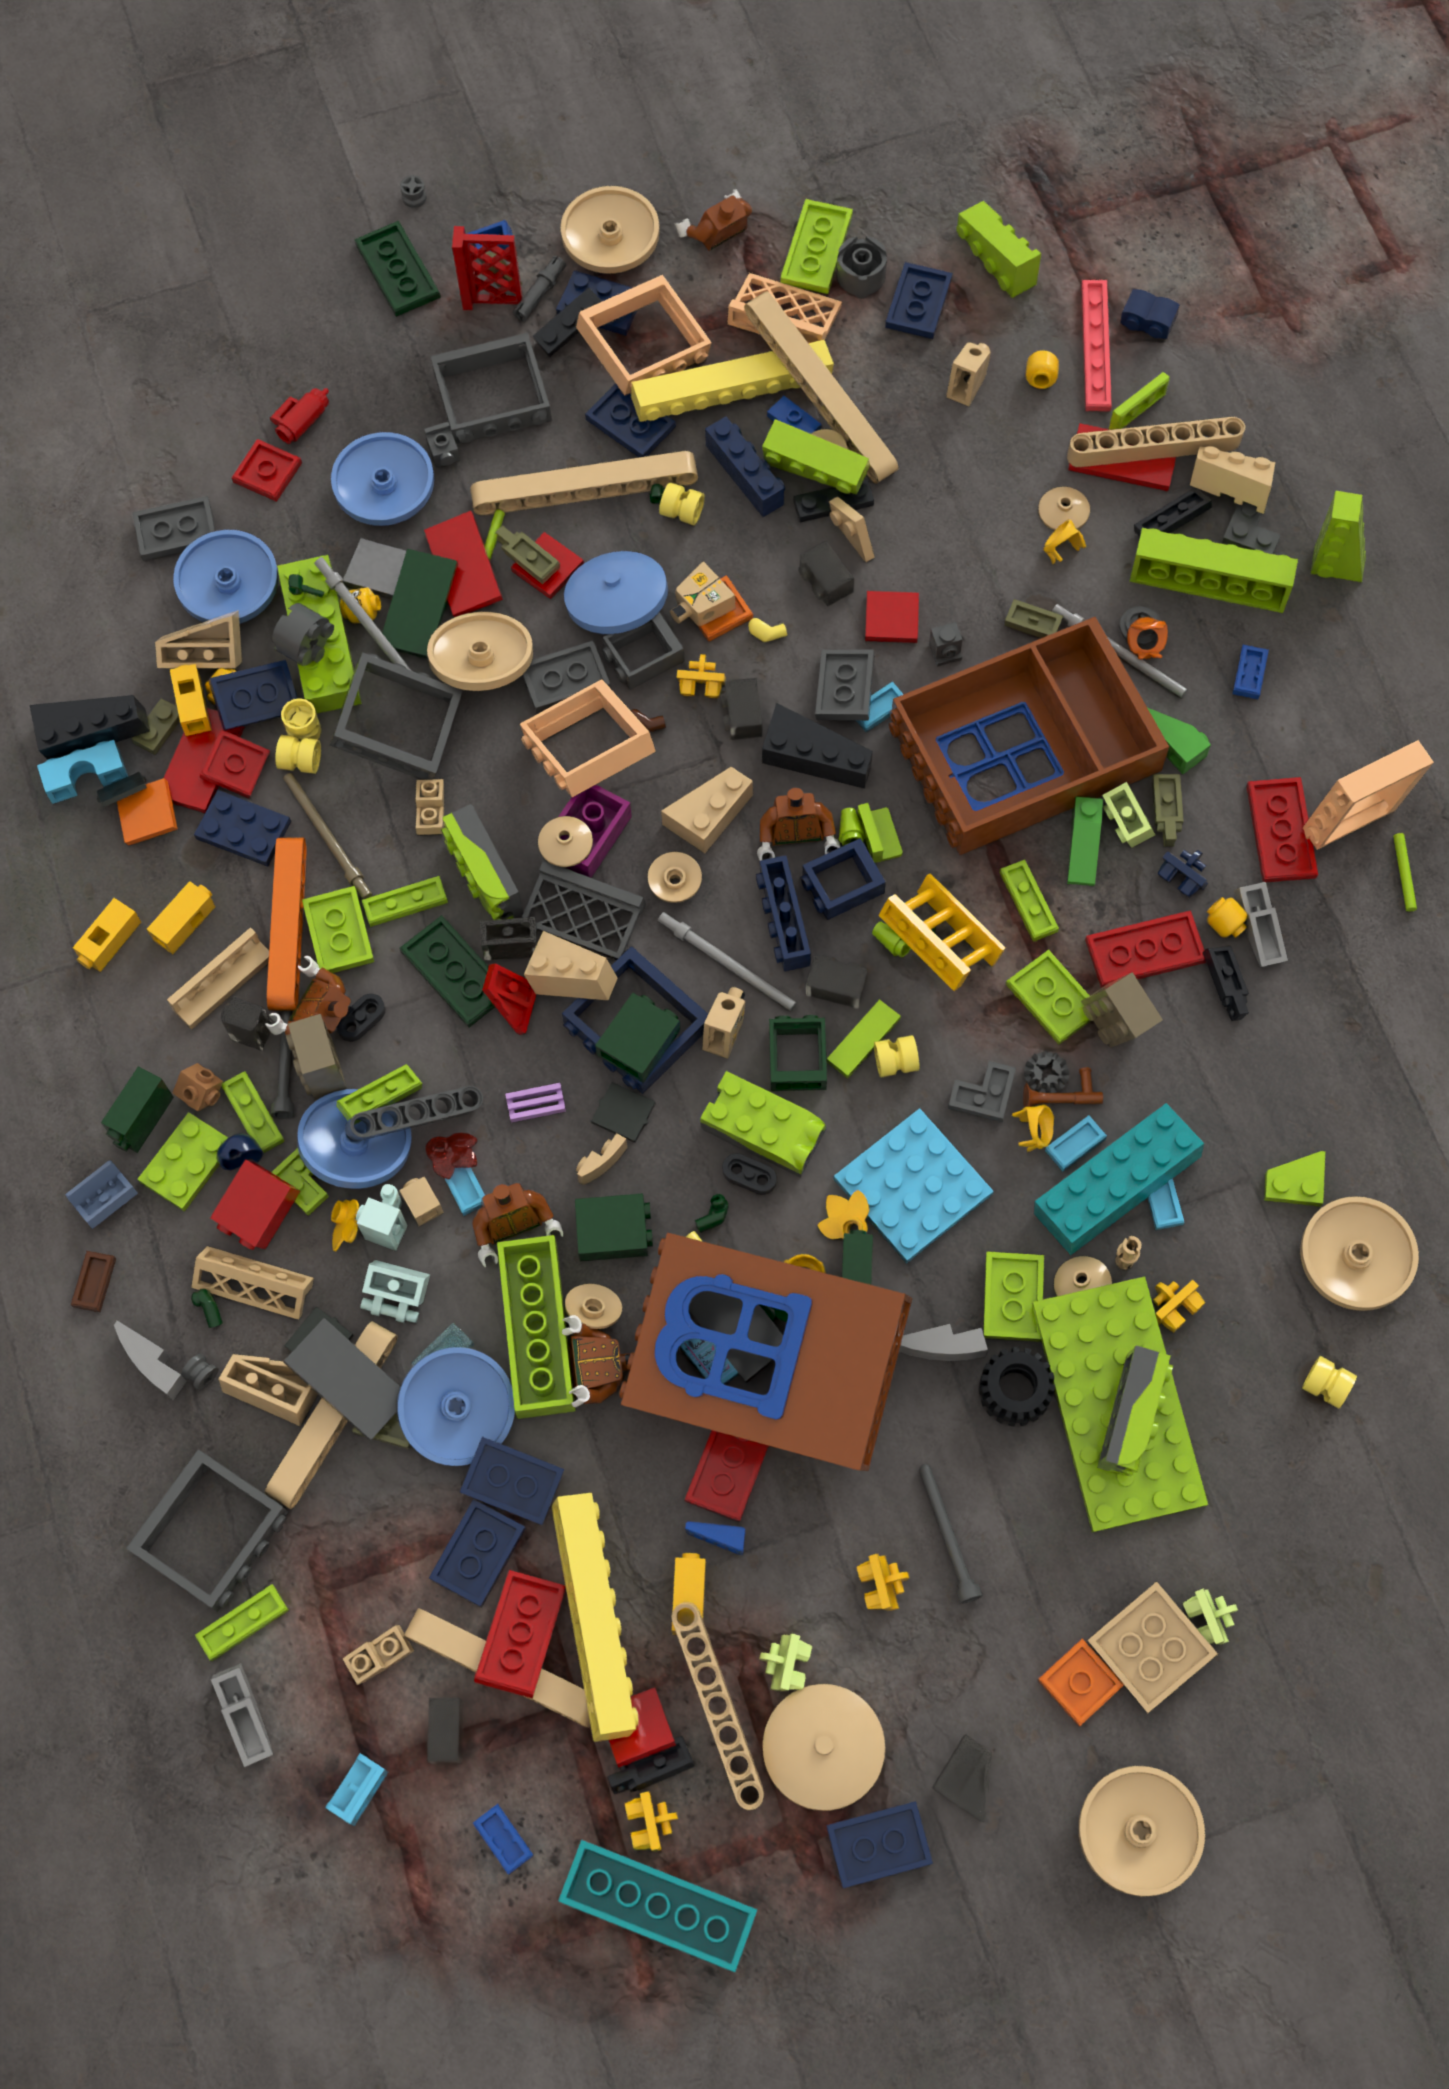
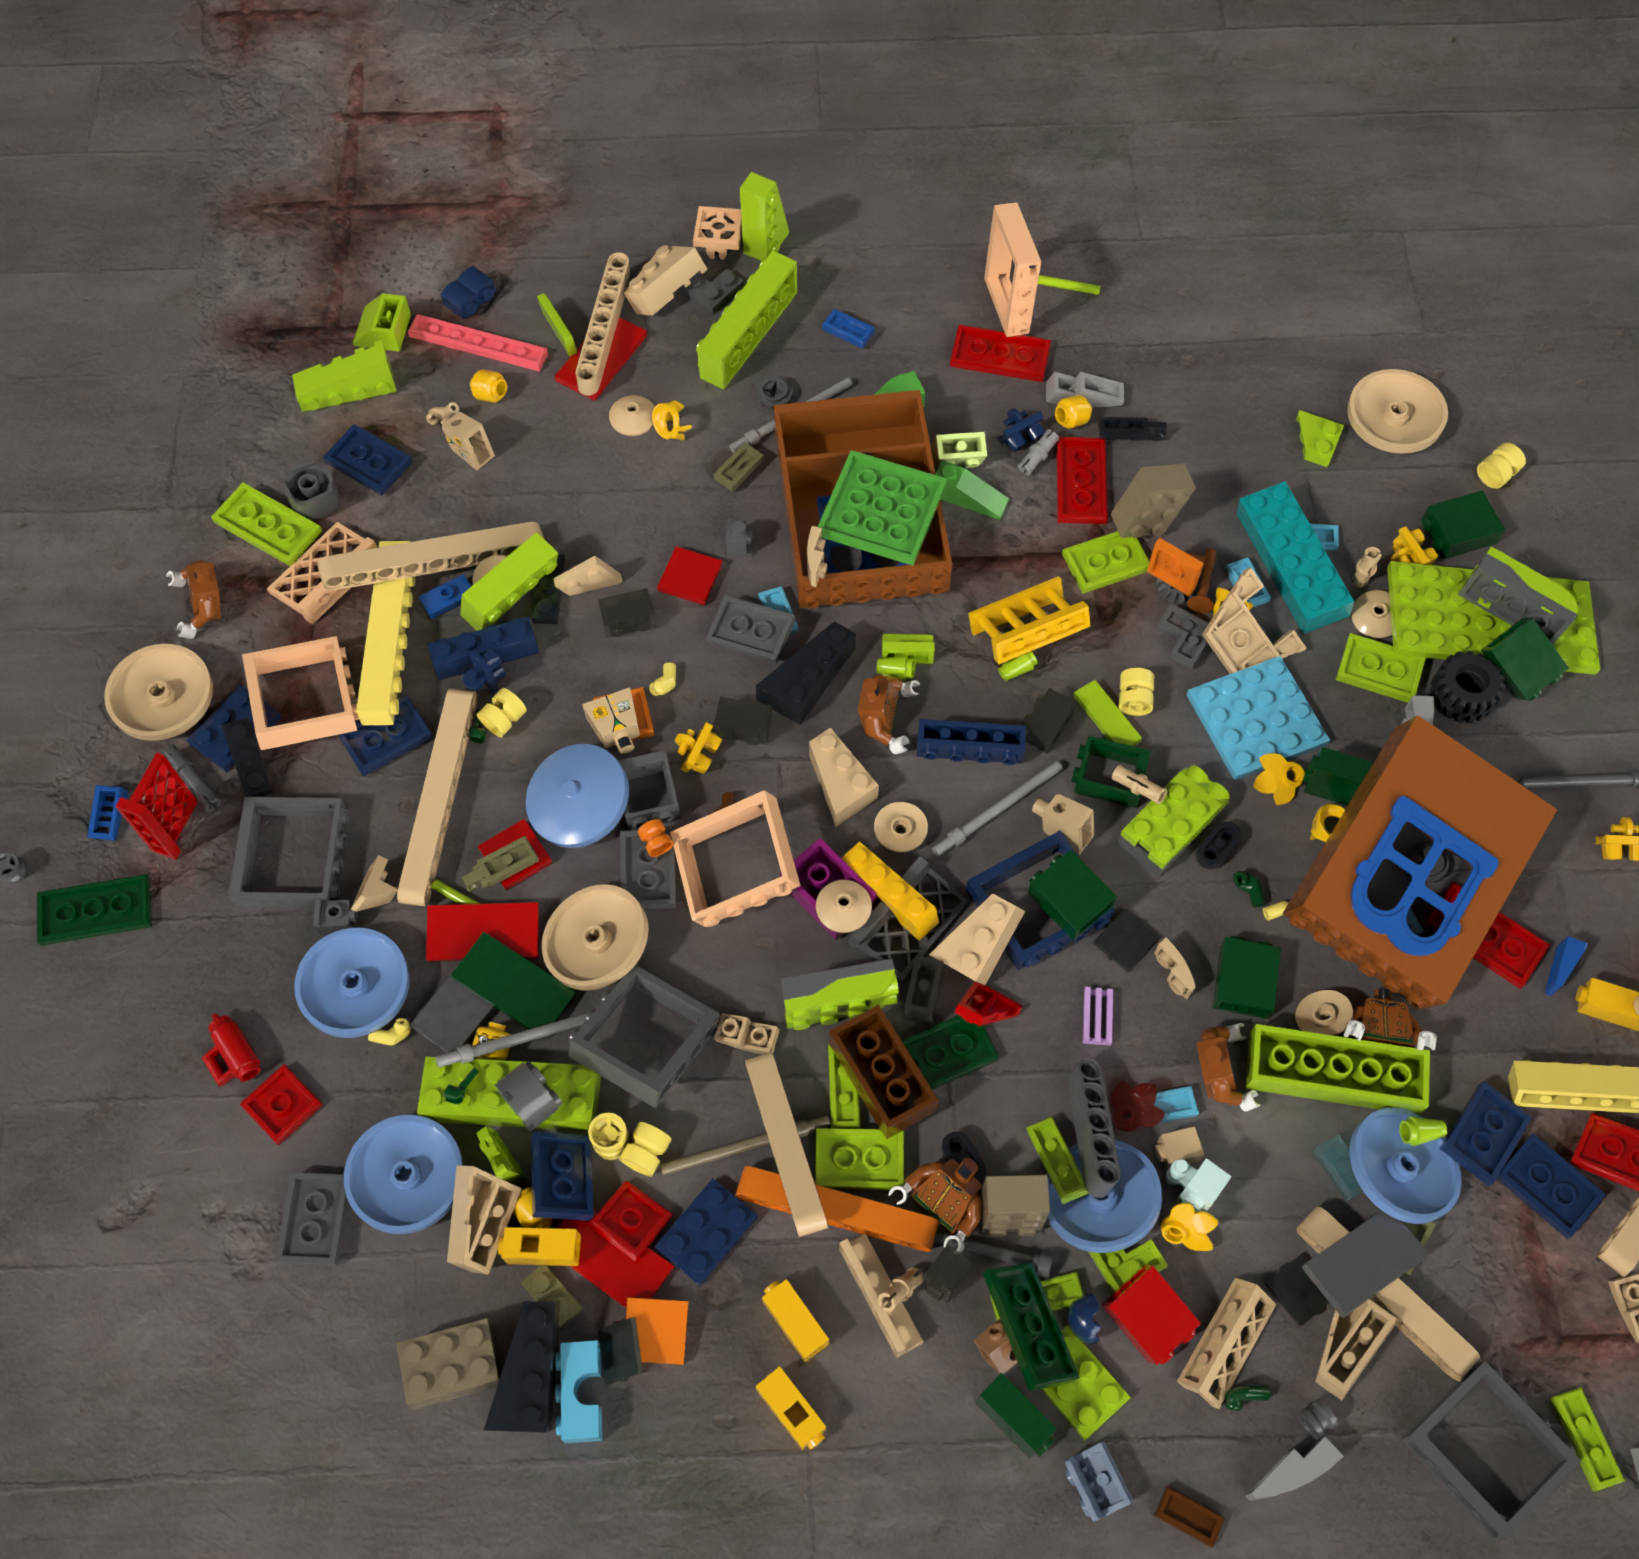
camera: 75 degrees left, 5 degrees down
(80, 663) = (449, 1364): none -> dark tan brick
(215, 1101) = (1031, 1326): none -> dark green tile
(223, 989) = (900, 1289): none -> tan pin
(256, 644) = (499, 1156): none -> lime wing
(327, 859) = (786, 1145): none -> tan beam
(349, 530) = (392, 1036): none -> light yellow arm
(396, 1284) = (1270, 1195): light aqua brick -> none
(415, 919) = (883, 1071): none -> reddish brown brick
(470, 463) = (374, 890): none -> tan slope
(493, 1414) = (1421, 1130): none -> lime cone
(584, 898) = (904, 901): none -> yellow arch
(589, 667) = (654, 836): none -> orange wheel
(717, 474) = (485, 670): none -> dark blue hips
(778, 1072) = (1145, 788): none -> tan pin
(874, 887) = (946, 664): dark blue window -> none
(908, 703) = (815, 556): none -> tan slope
(993, 1141) = (1237, 635): none -> tan wing
(995, 339) = (439, 413): none -> tan arm
(1002, 746) = (882, 507): none -> bright green plate
(1029, 900) = (1009, 551): lime tile -> none
(1047, 1051) = (1175, 567): none -> orange tile
(1064, 1437) = (1526, 659): none -> dark green brick
(1079, 257) = (385, 320): none -> lime slope
(1146, 623) = (783, 380): orange piece -> none
(1161, 896) = (1038, 452): none -> light grey pin
(1167, 806) = (954, 421): olive hinge -> none
(1176, 512) = (677, 336): black plate -> none
(1231, 1352) = (1462, 524): none -> dark green brick
(1313, 513) = (718, 230): none -> light nougat piece

